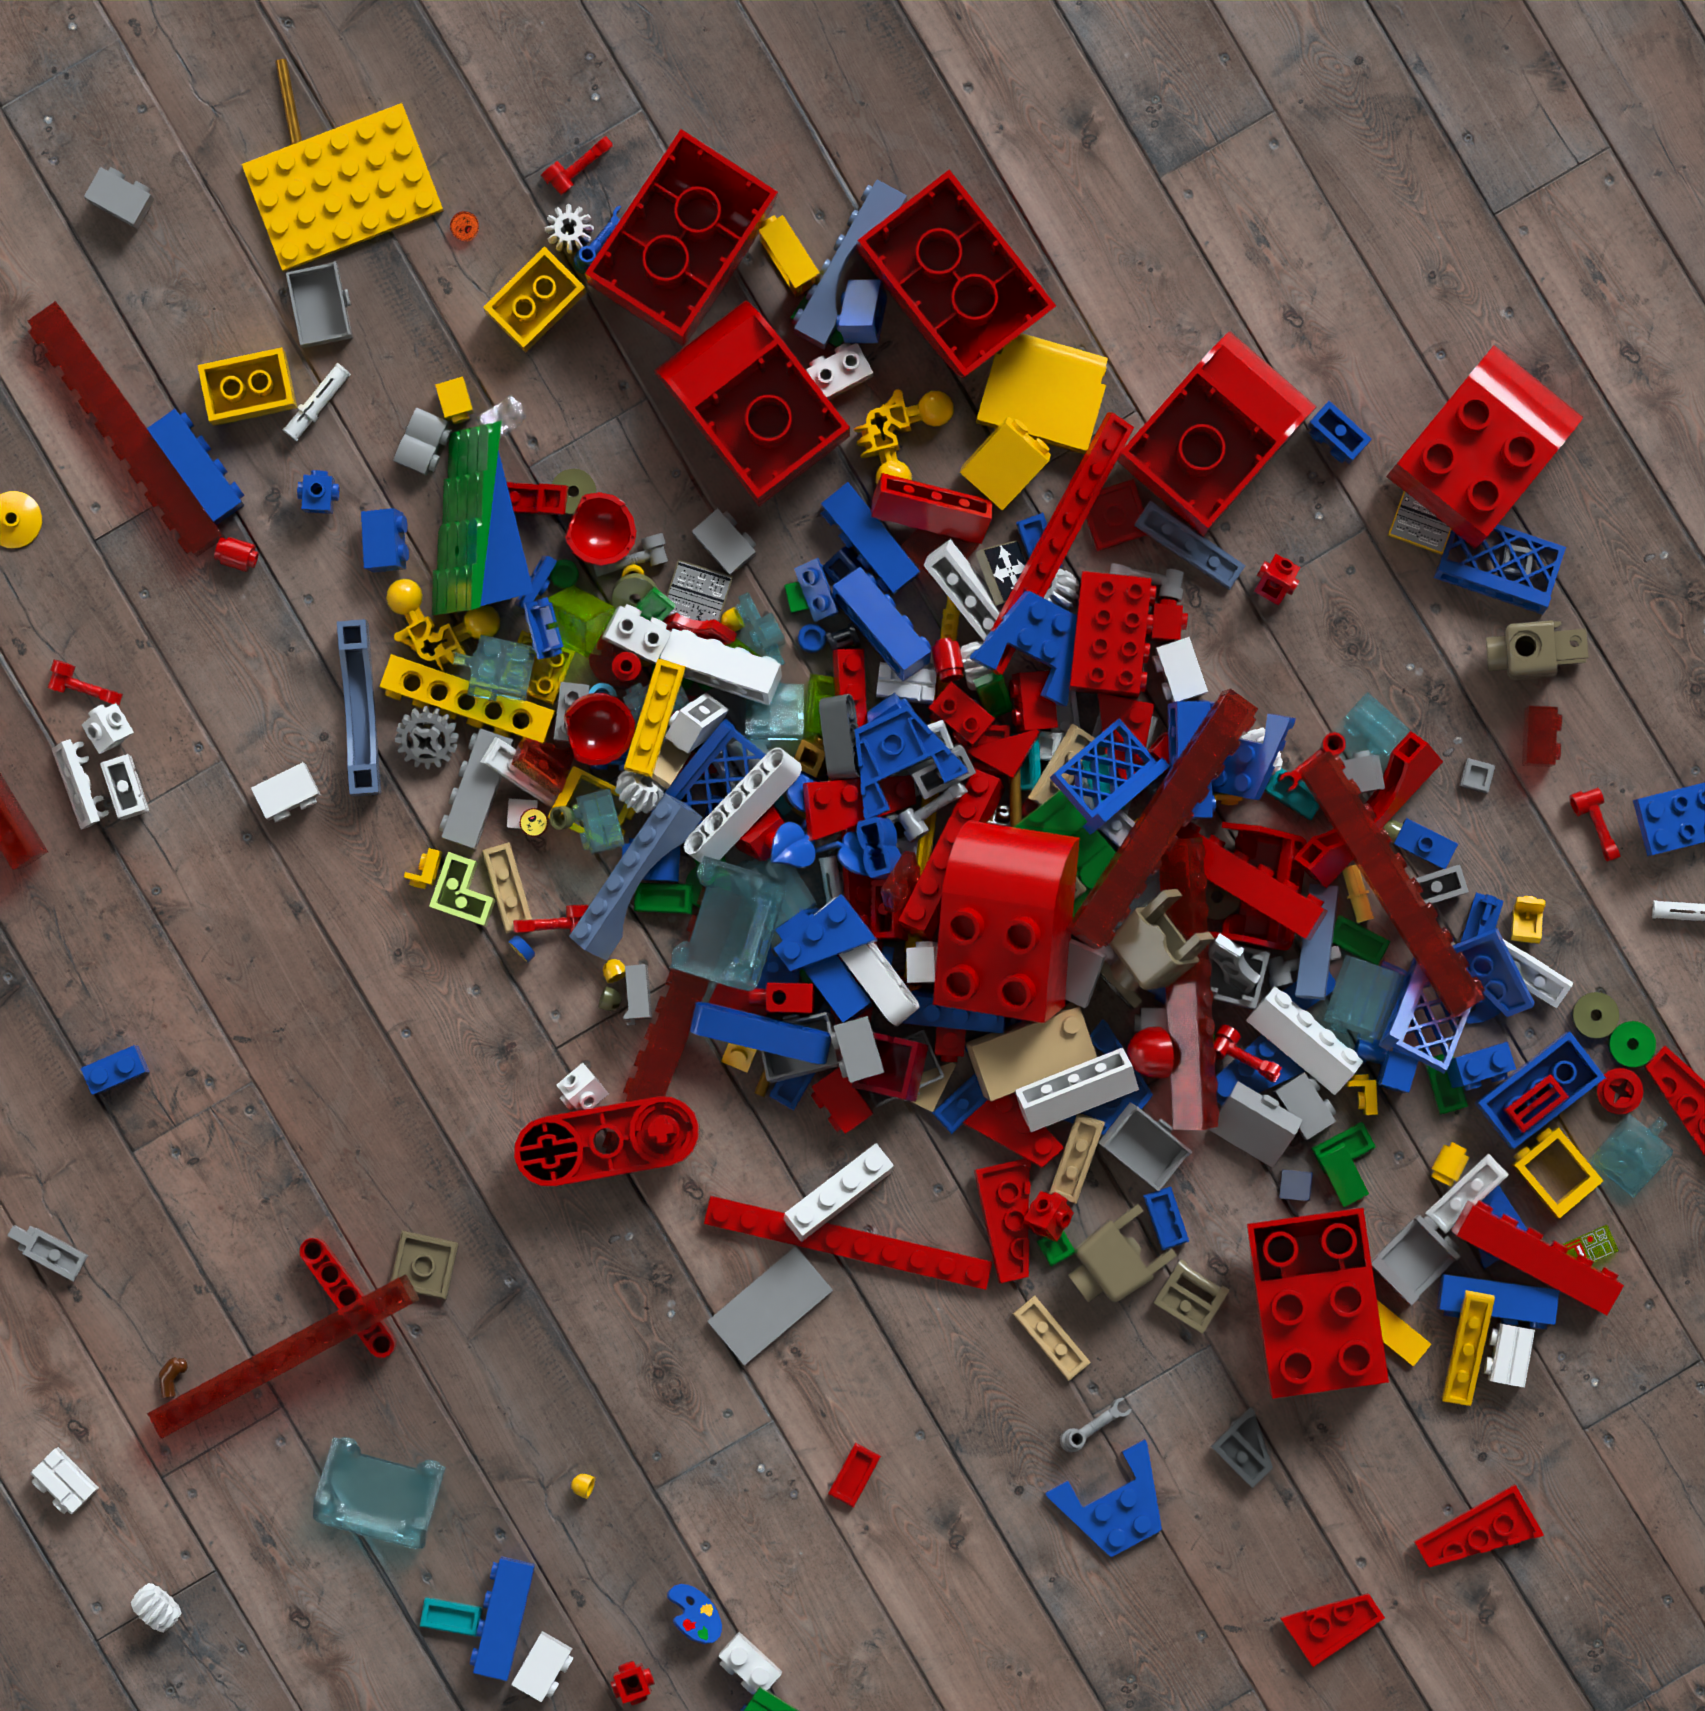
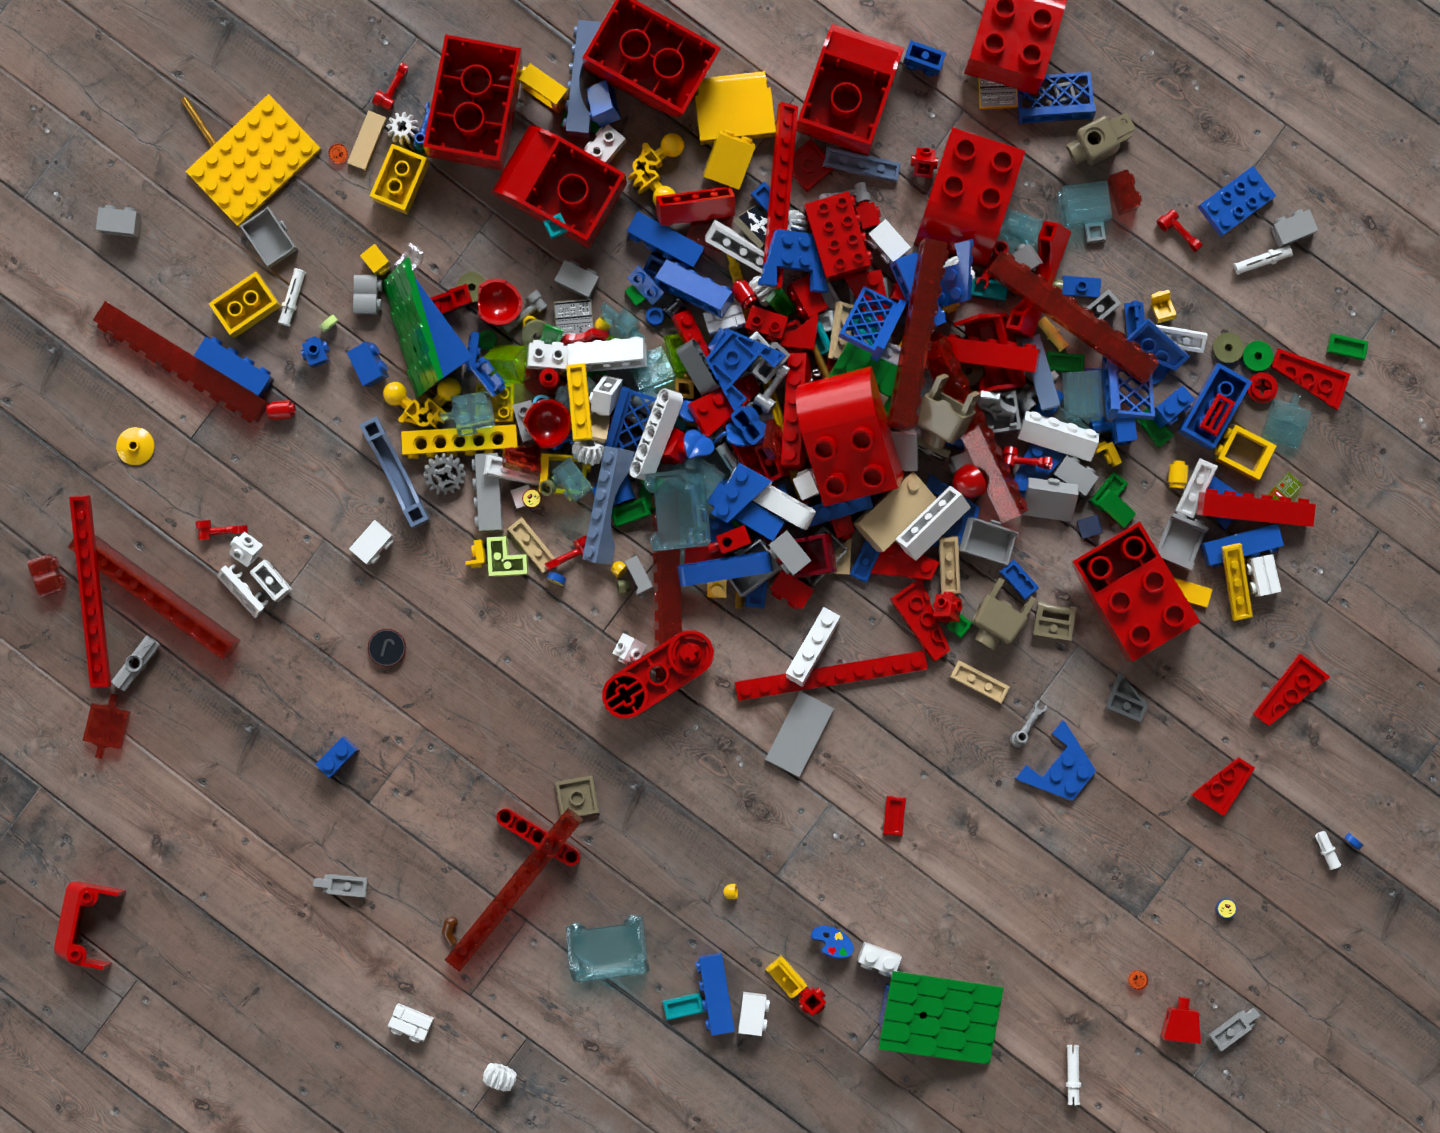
camera: 20 degrees left, 0 degrees up
(246, 946) = (387, 647): none -> black tile
(352, 460) = (328, 323): none -> yellowish green tile
(512, 225) = (367, 140): none -> tan tile
(610, 1635) = (786, 976): none -> yellow hinge
(718, 463) = (553, 229): none -> teal tile
(1321, 652) = (970, 193): none -> red brick
(1478, 730) = (1084, 203): none -> clear light blue brick

